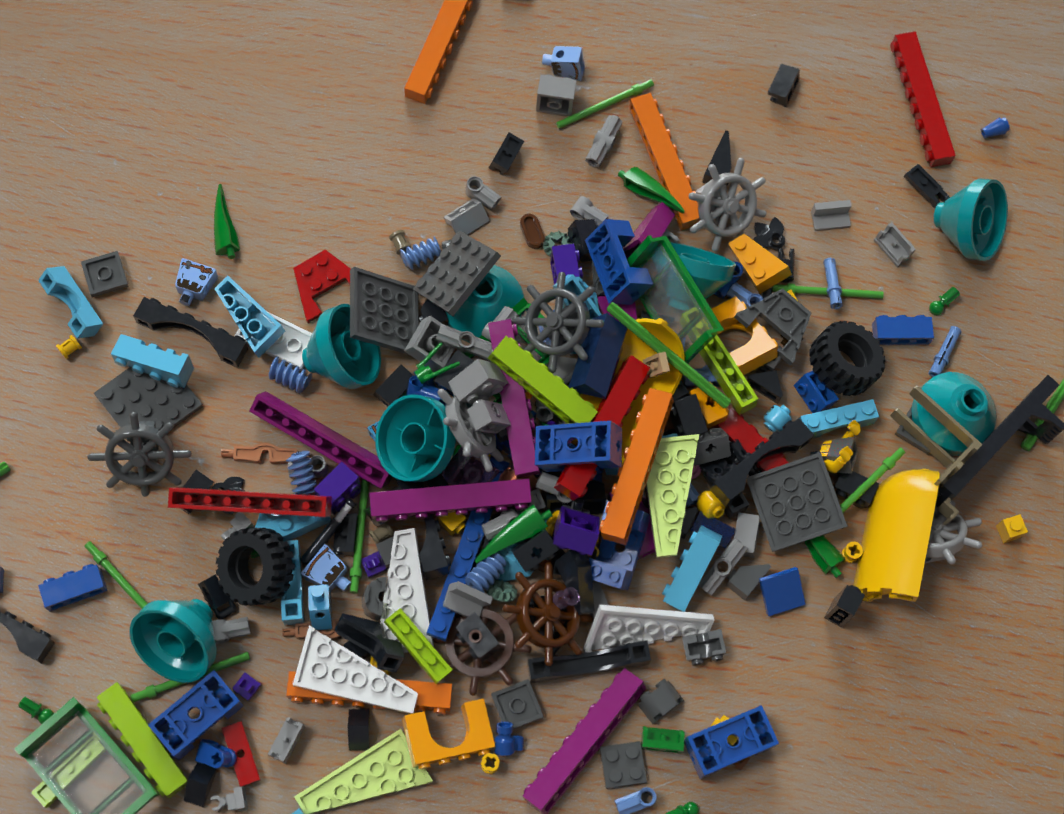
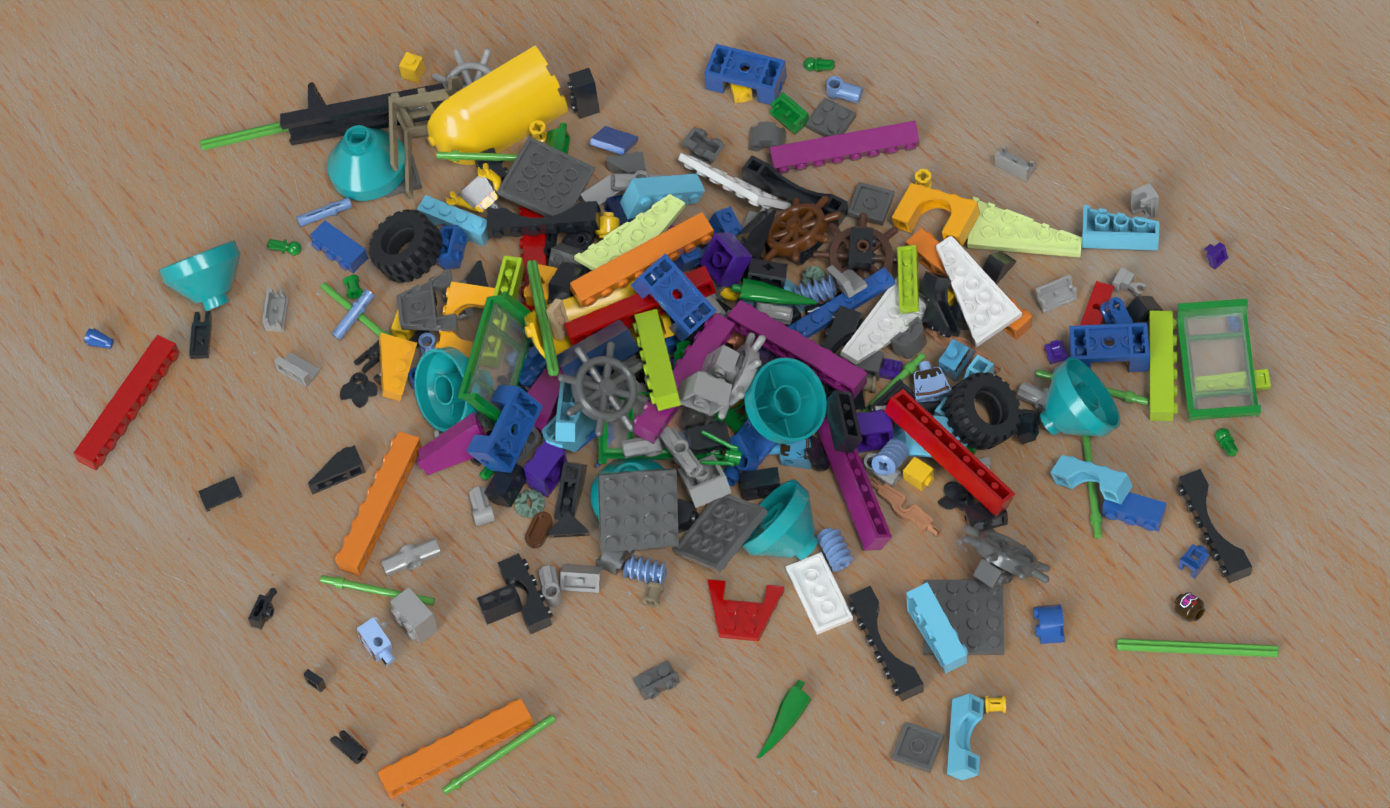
camera: 125 degrees left, 10 degrees down
(75, 444) = (1050, 623): none -> blue cylinder
(96, 582) = (1072, 472): none -> medium azure arch
(194, 281) = (848, 684): light blue torso -> none
(253, 320) = (828, 607): medium azure wedge -> none
(274, 483) = (918, 474): none -> yellow brick
(341, 185) = (656, 680): none -> dark grey bracket
(358, 463) = (843, 421): none -> black brick
(366, 438) = (817, 454): none -> black plate
(421, 20) = (455, 783): none -> bright green bar
(505, 742) = (898, 184): blue piece -> none
(508, 243) = (568, 527): none -> black slope
(515, 184) = (534, 612): none -> black arch
(534, 270) = (570, 488): none -> black slope
(566, 595) = (775, 223): clear purple bush -> none
(584, 11) = (314, 680): none -> black tile
(646, 186) = (414, 491): green piece -> none
(668, 29) = (262, 609): none -> black piece
(717, 206) = (376, 418): light grey piece -> none
(777, 418) = (495, 252): medium azure head -> none
(857, 307) = (353, 287): none -> green bush

